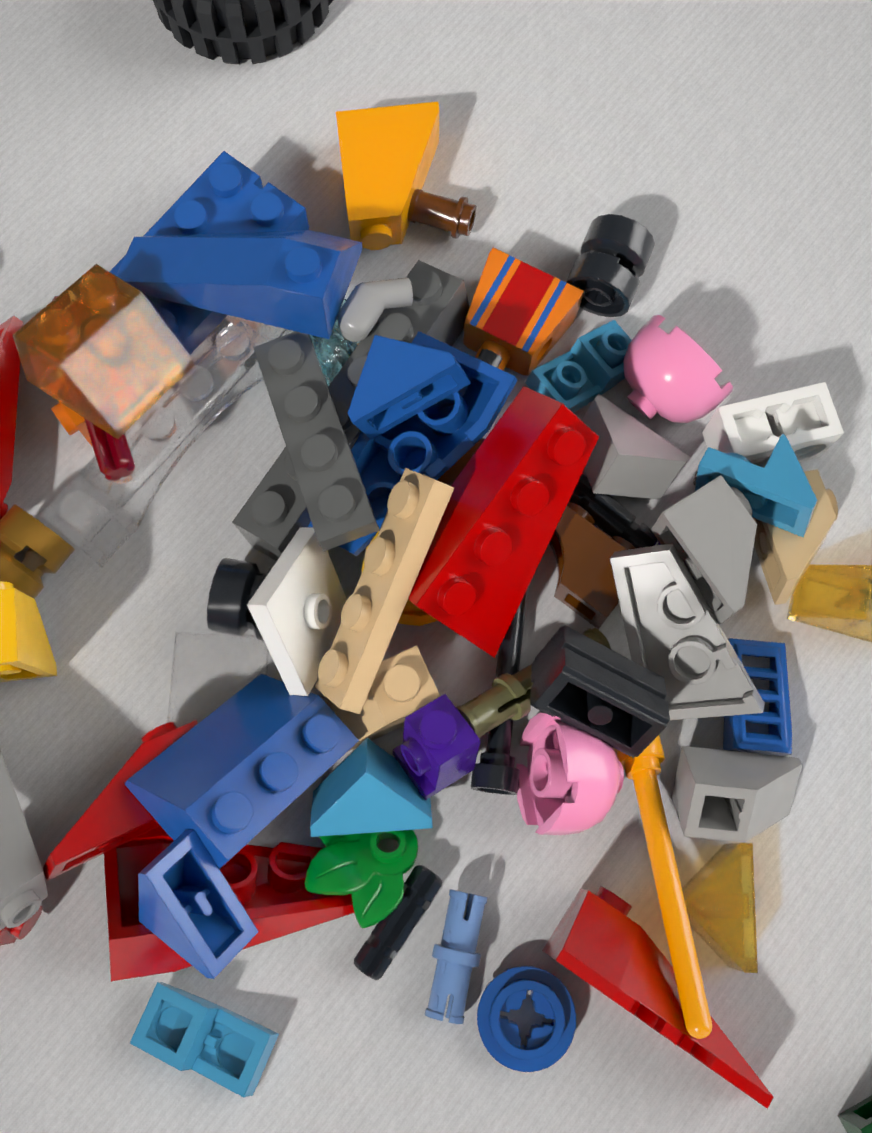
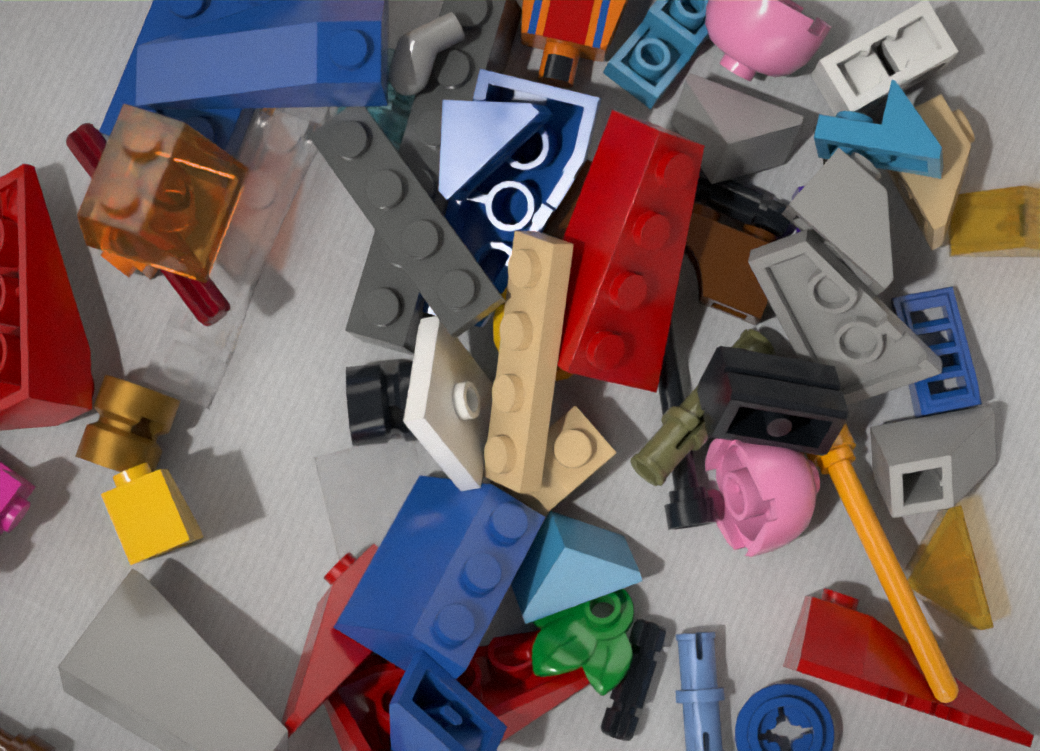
camera: 15 degrees left, 10 degrees up
(437, 747) = (624, 501): dark purple brick -> none

